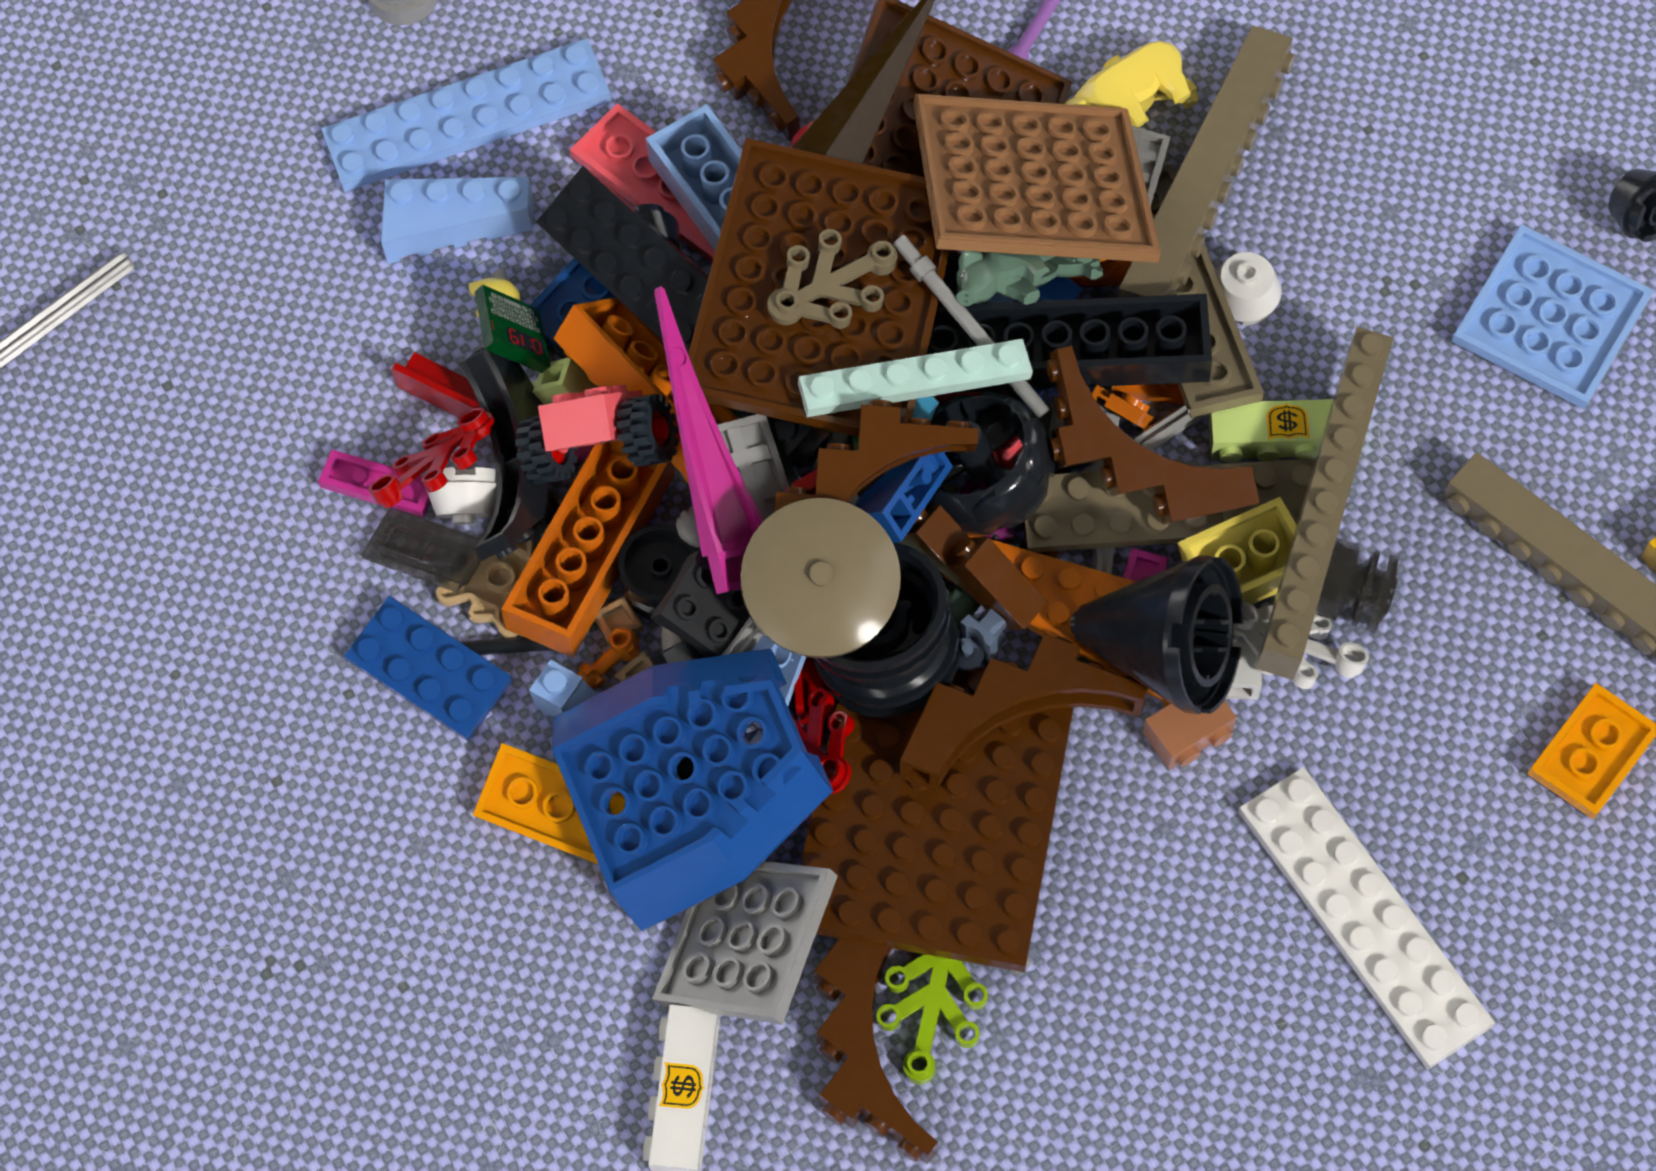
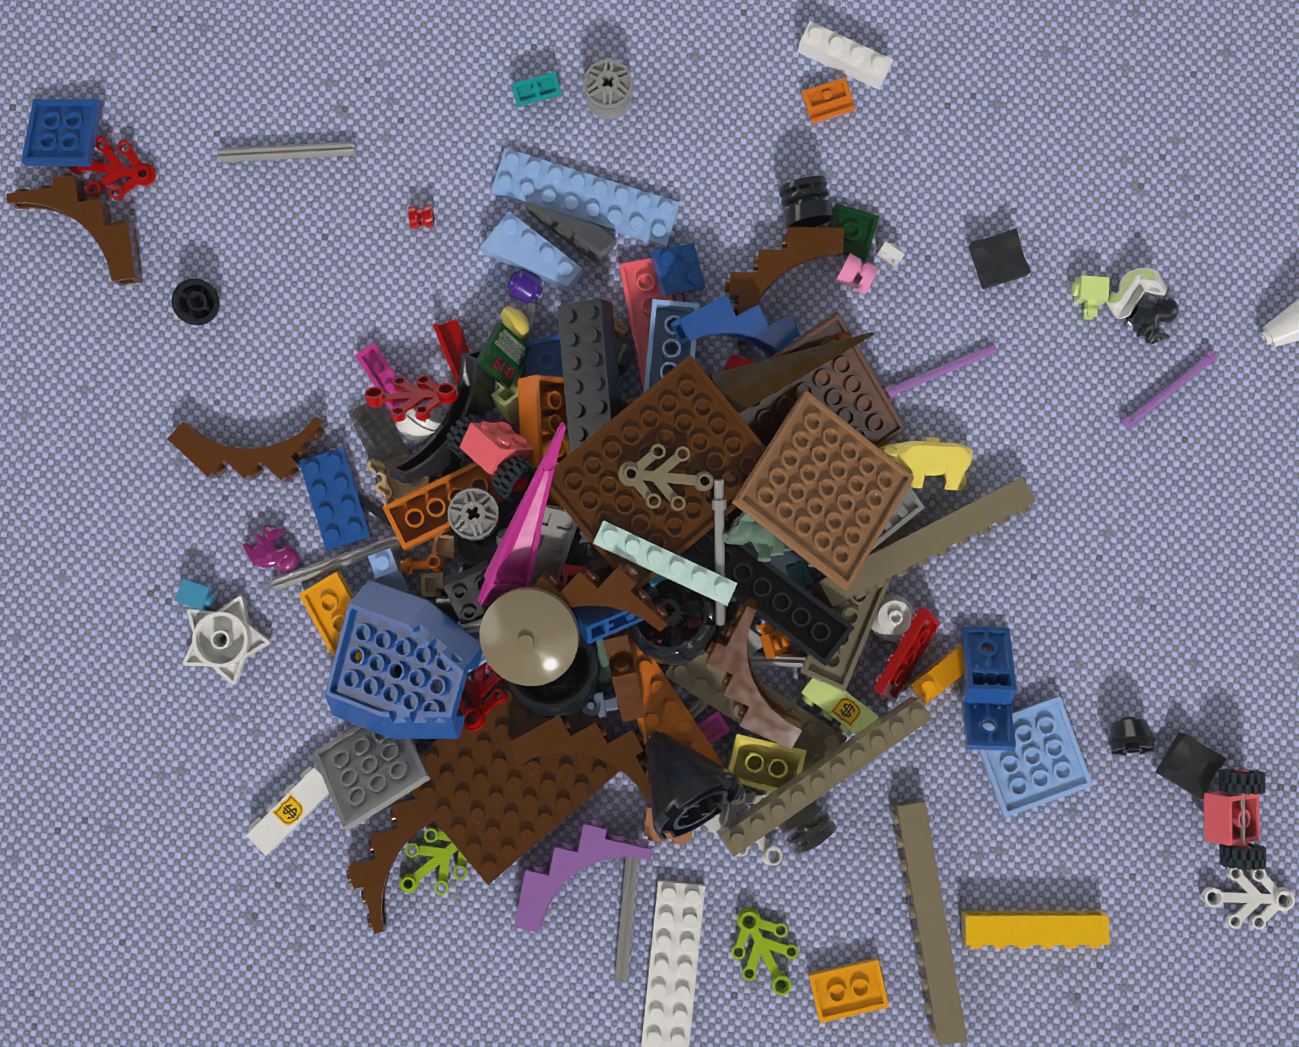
camera: 30 degrees right, 20 degrees up
(57, 563) = (195, 302): none -> black cone
(224, 733) = (248, 462): none -> reddish brown arch
(277, 271) = (421, 216): none -> red wheel
(307, 38) = (536, 89): none -> teal hinge
(333, 919) = (196, 594): none -> dark azure brick
(388, 798) = (267, 554): none -> magenta animal
(412, 921) = (207, 642): none -> white plate
(472, 255) = (524, 286): none -> dark purple head
(486, 751) = (333, 563): none -> light grey axle
(500, 151) = (582, 235): none -> dark grey wedge
(632, 539) = (476, 528): none -> light grey wheel
(645, 104) = (677, 270): none -> blue plate
(748, 102) = (719, 319): none -> blue arch
(1103, 866) = (595, 846): none -> medium lavender arch
(1234, 878) = (626, 919): none -> light grey axle
(1301, 308) = (908, 654): none -> red plate
(1360, 302) = (938, 675): none -> light orange slope
(1429, 272) = (988, 688): none -> blue bracket
(1442, 786) = (763, 946): none -> lime plant

